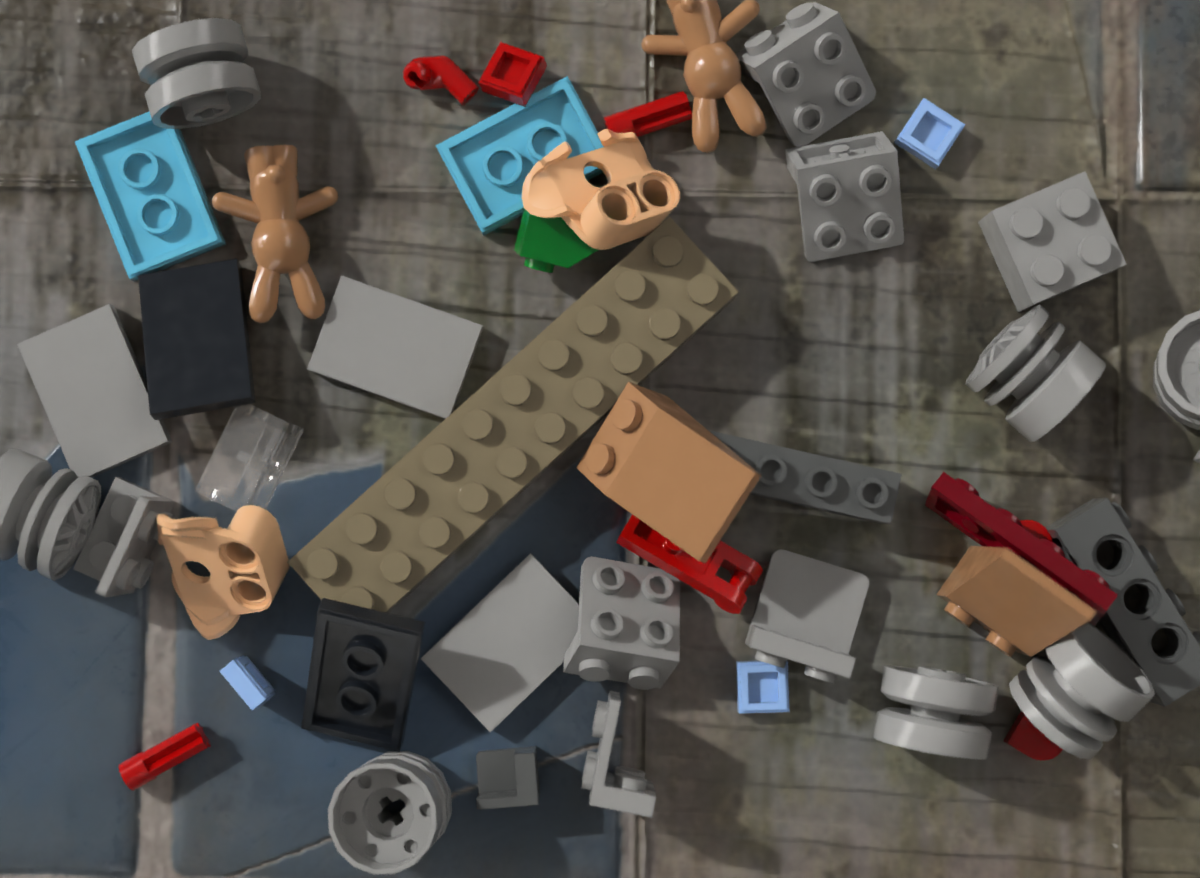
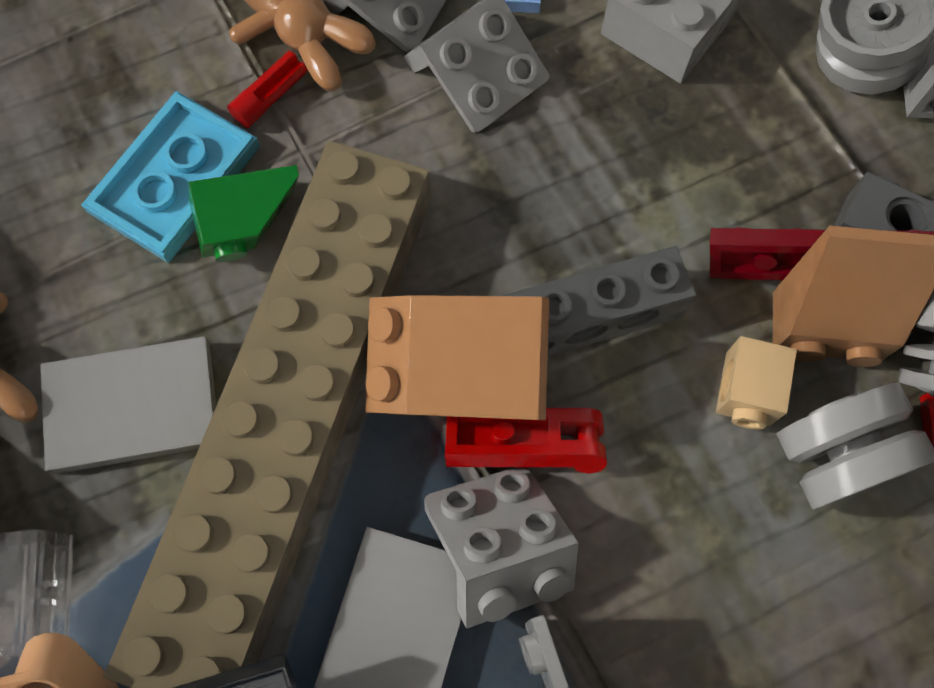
camera: 30 degrees left, 15 degrees down
(440, 73) = (56, 146): red arm -> none
(512, 74) = (124, 112): red tile -> none
(608, 216) = (273, 154): light nougat piece -> none
(761, 687) = (671, 529): light blue tile -> none
(807, 615) = (672, 433): light grey bracket -> none
(898, 616) = (756, 383): none -> tan brick
(1038, 376) = (735, 104): light grey wheel -> none

